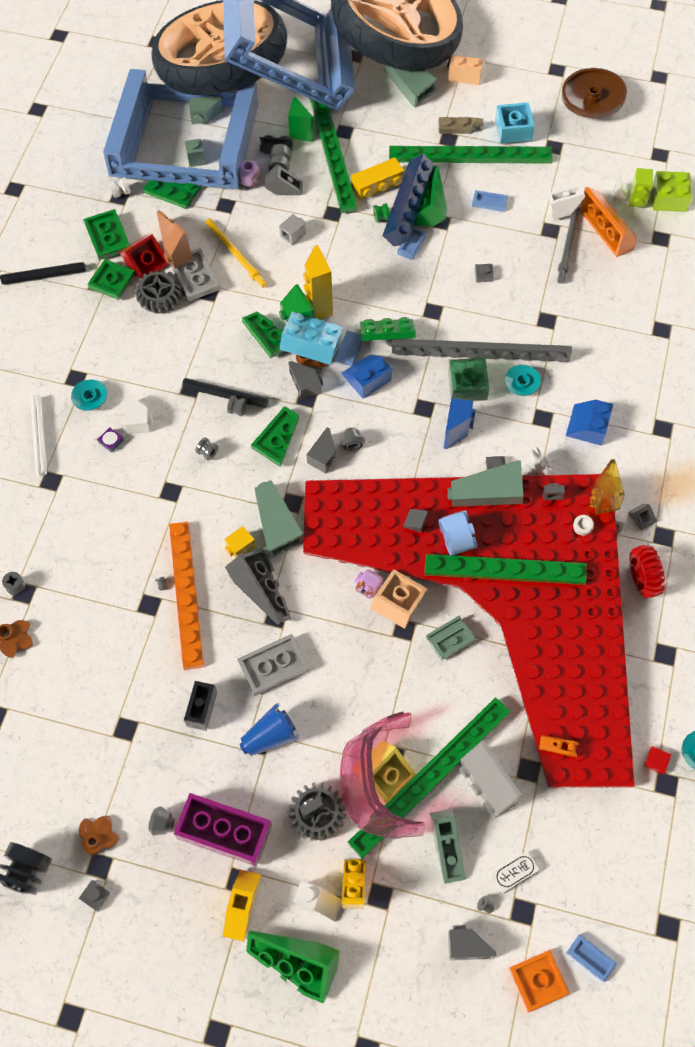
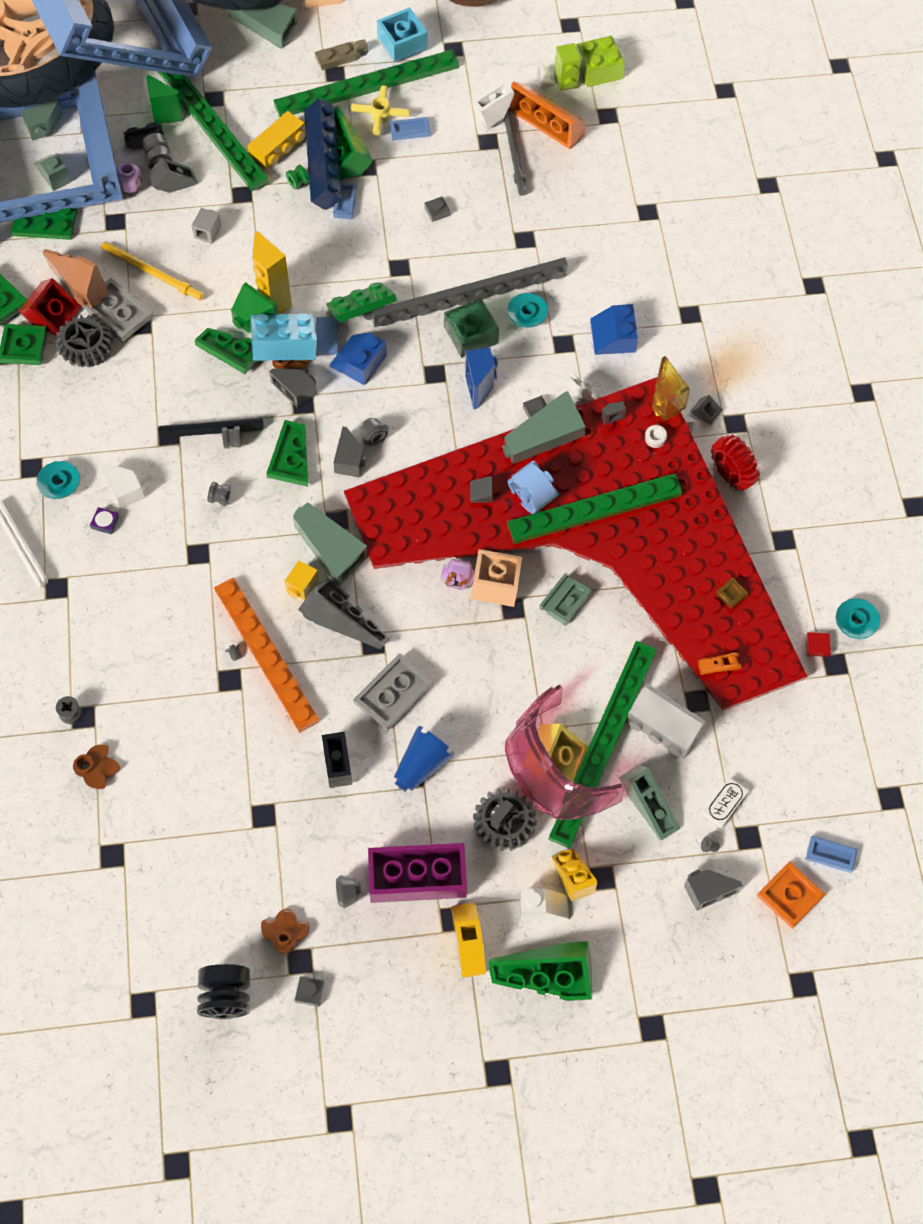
camera: 25 degrees left, 0 degrees up
(471, 179) = (380, 110): none -> light yellow bar
(595, 687) = (732, 593): none -> pearl gold tile

